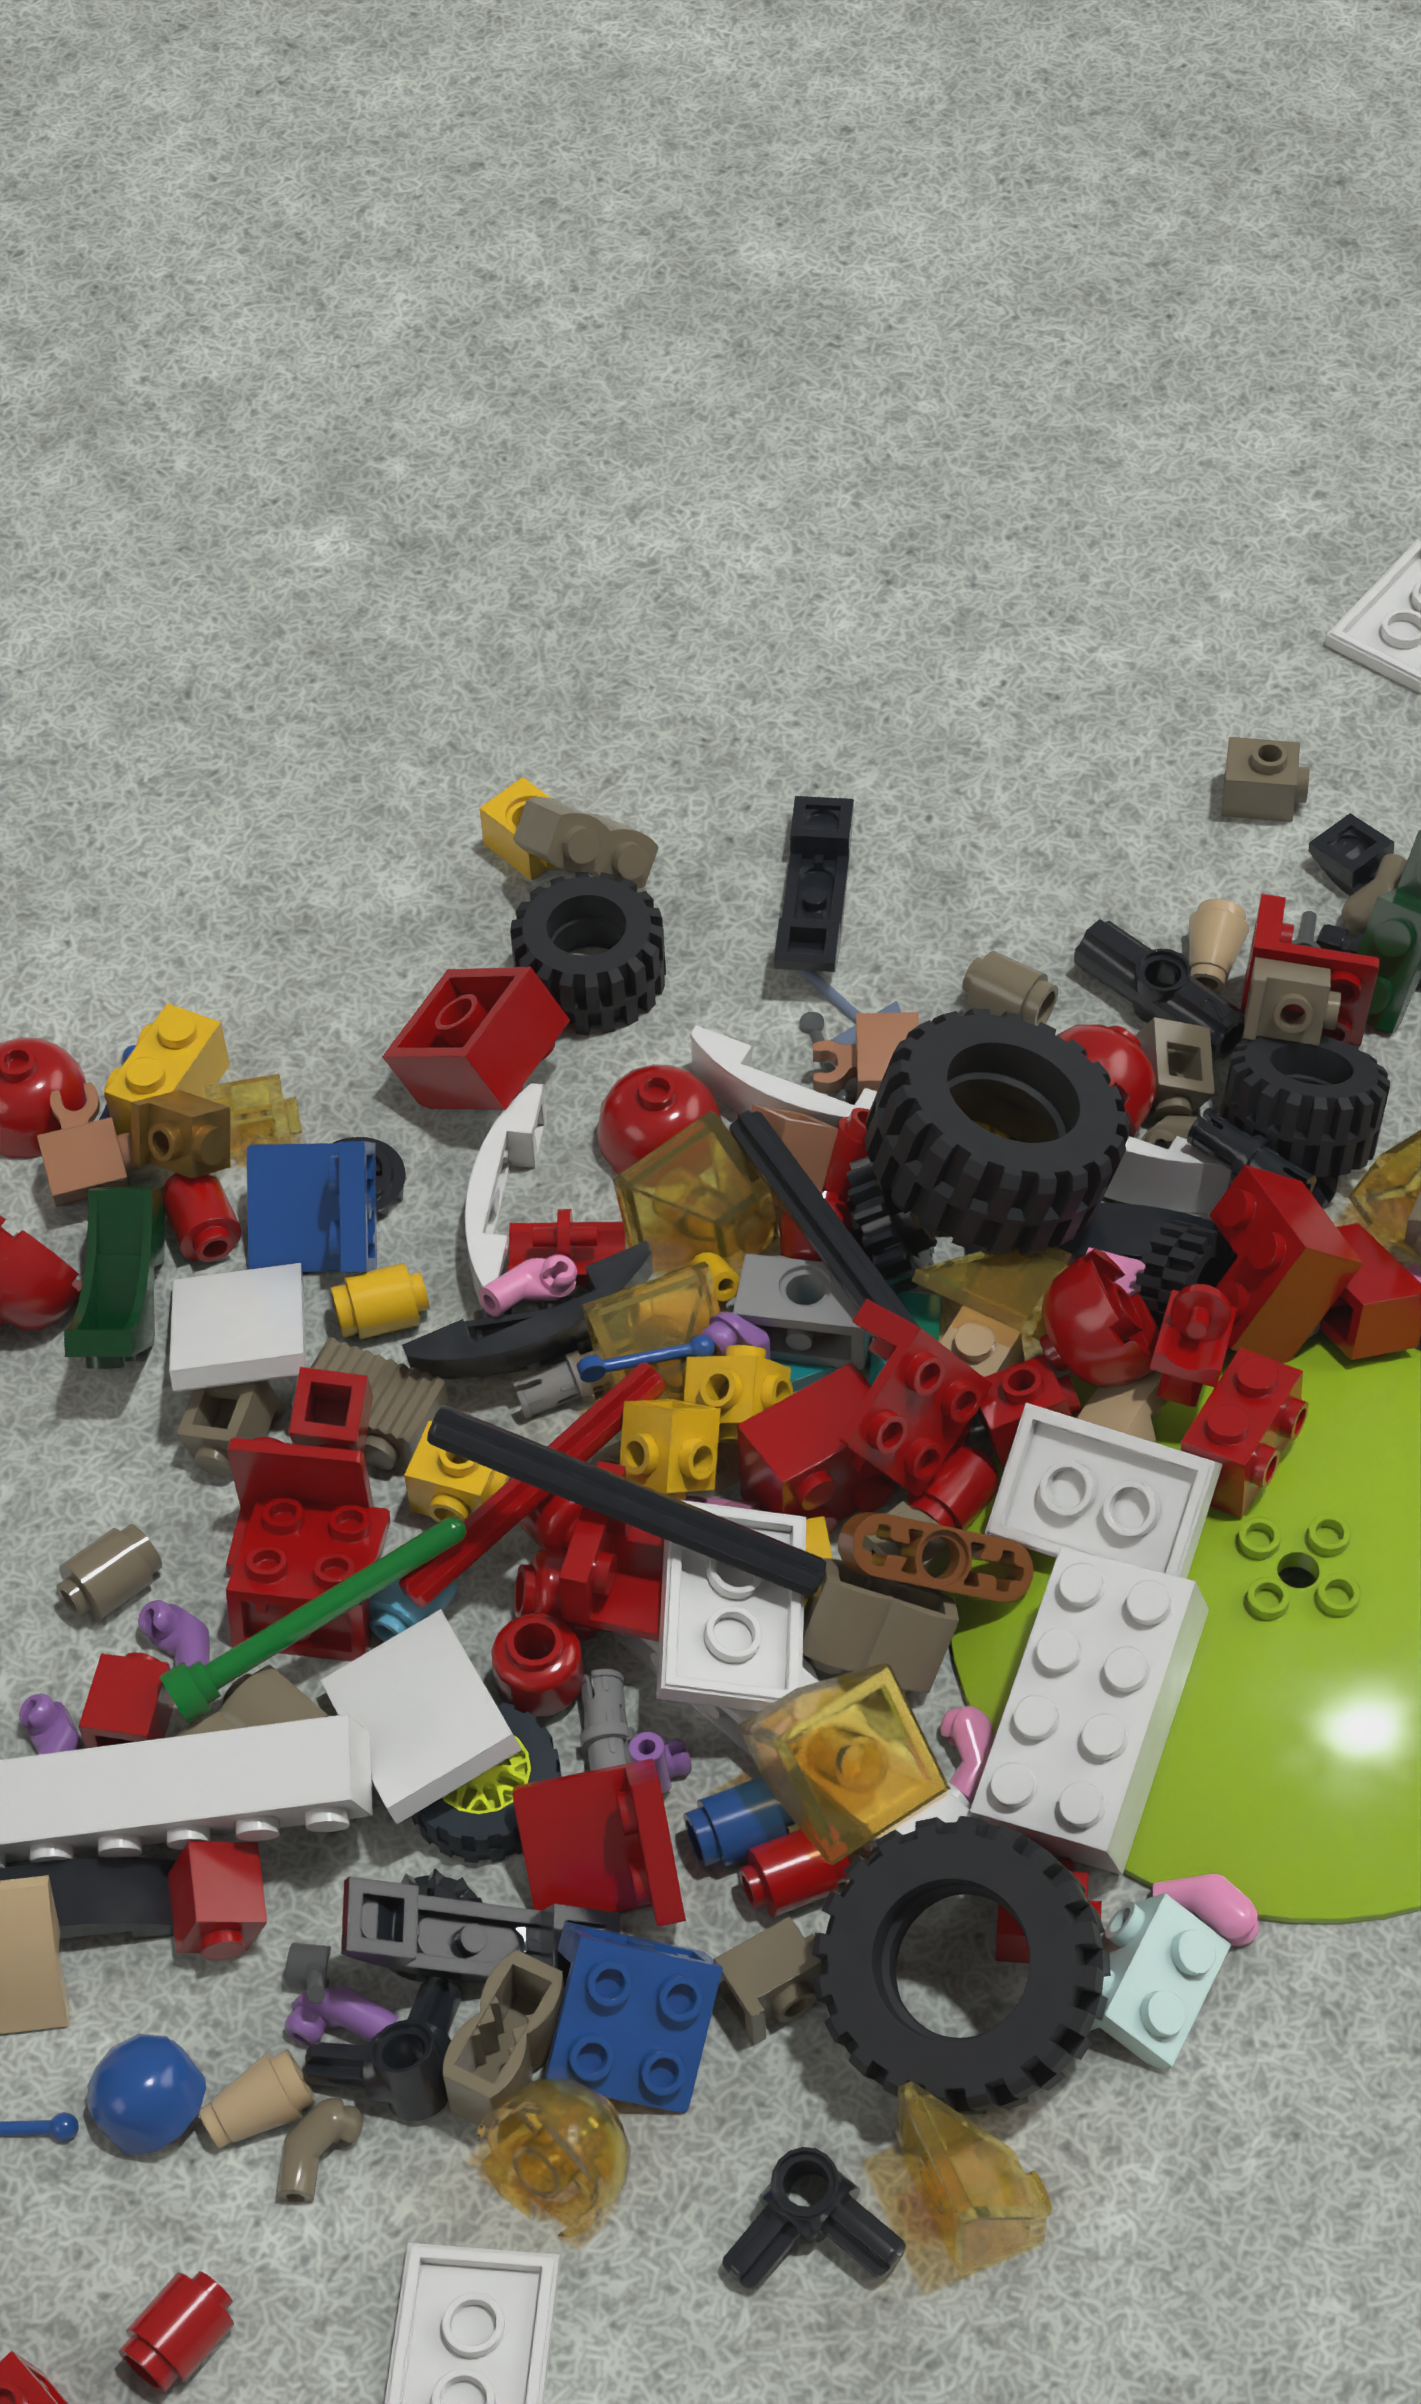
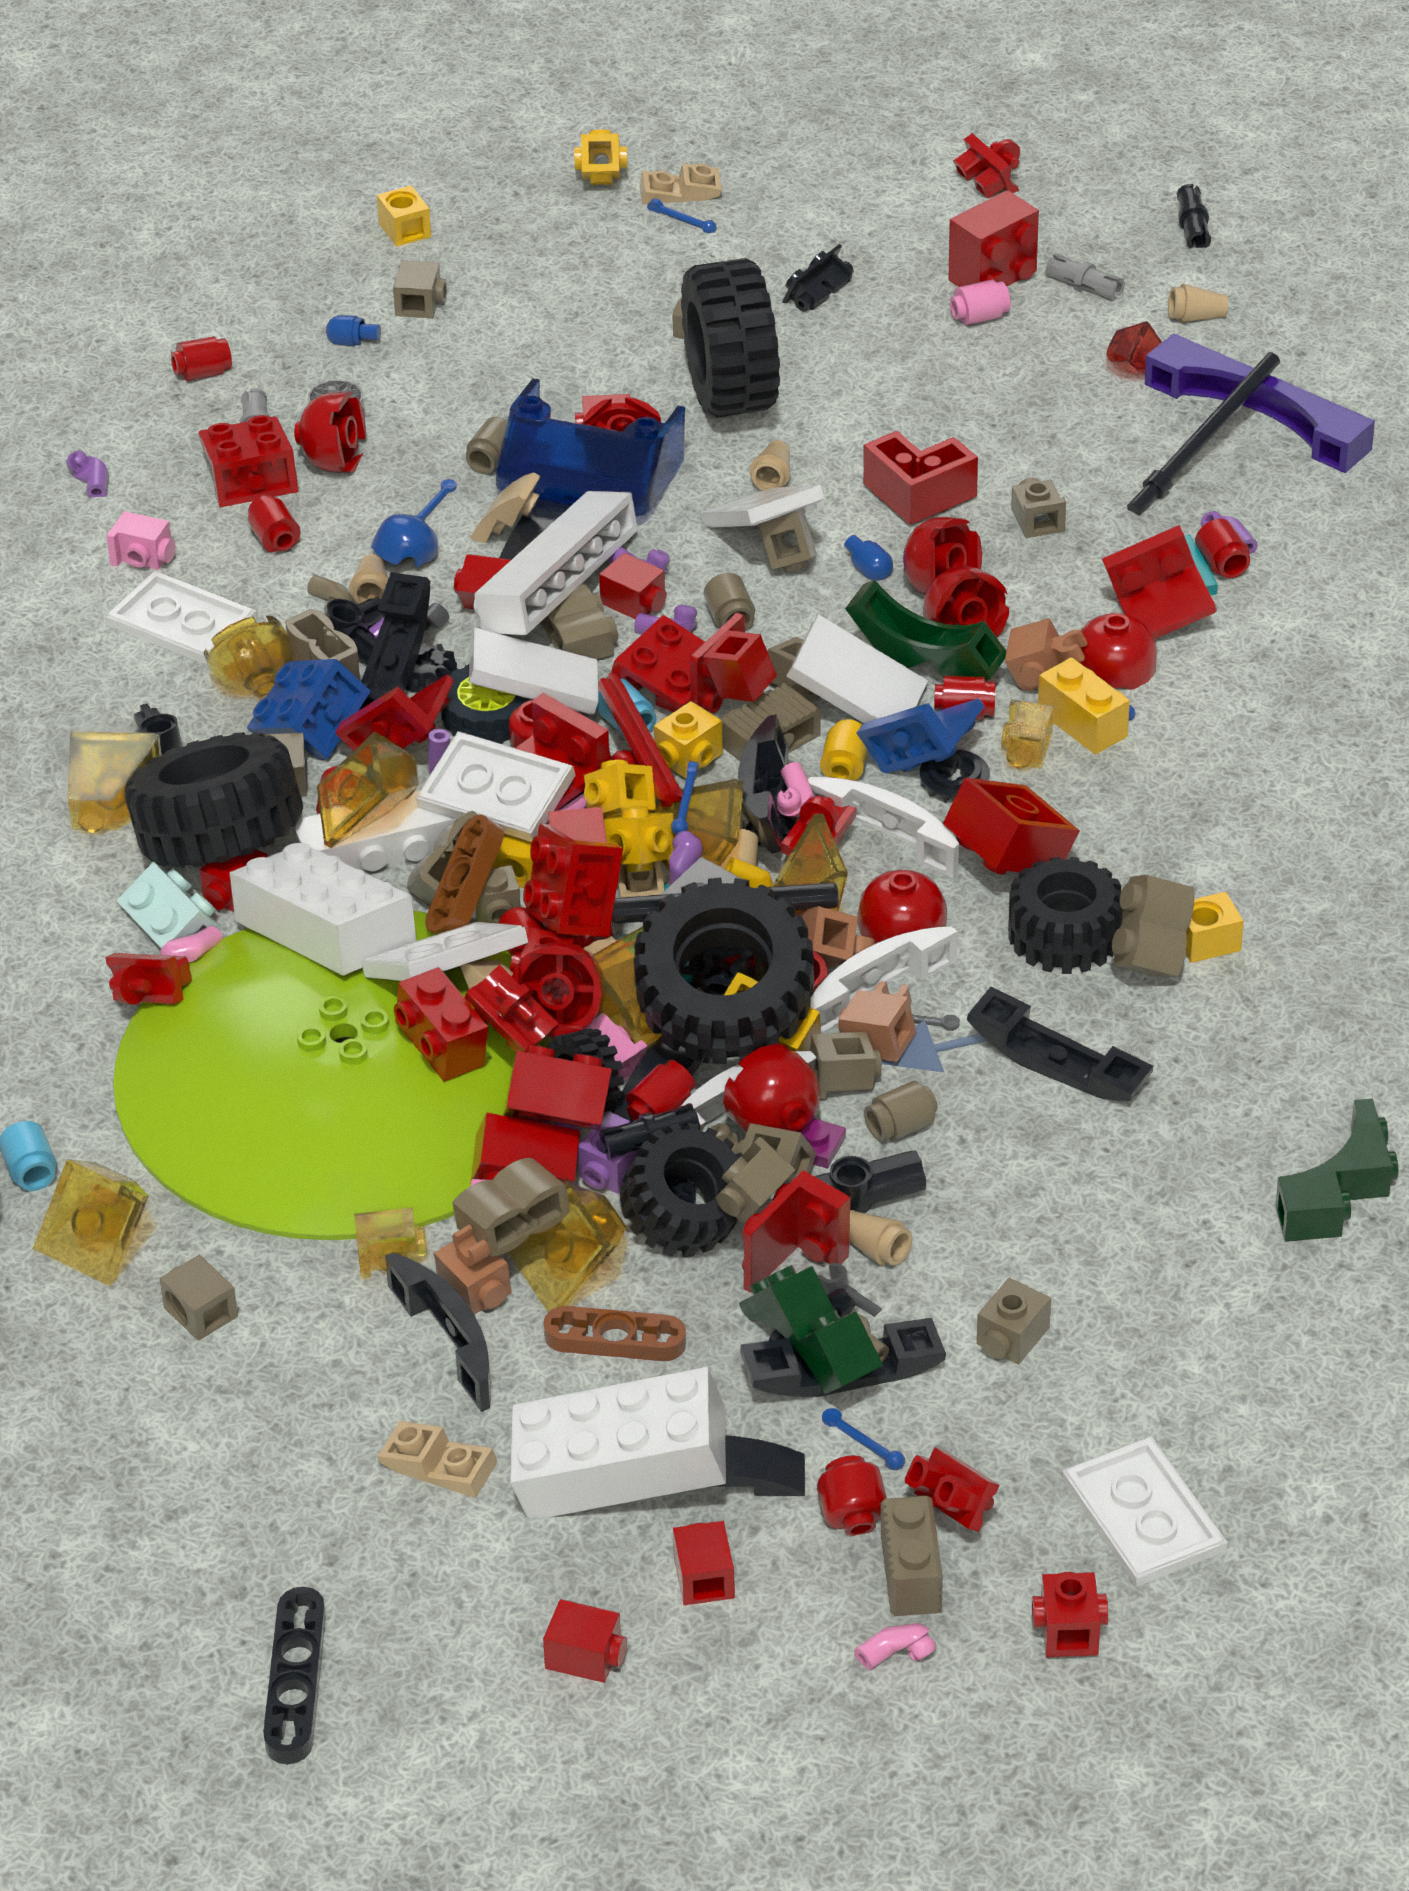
camera: 115 degrees right, 10 degrees down
(181, 1133) = (1012, 678): pearl gold brick -> none
(198, 1685) = (613, 594): green piece -> none
(626, 1501) = (566, 723): black axle -> none
(840, 588) = (1319, 1199): none -> dark green arch
(1169, 1191) = (660, 1090): none -> red brick
(1326, 1933) = (148, 977): none -> red hips

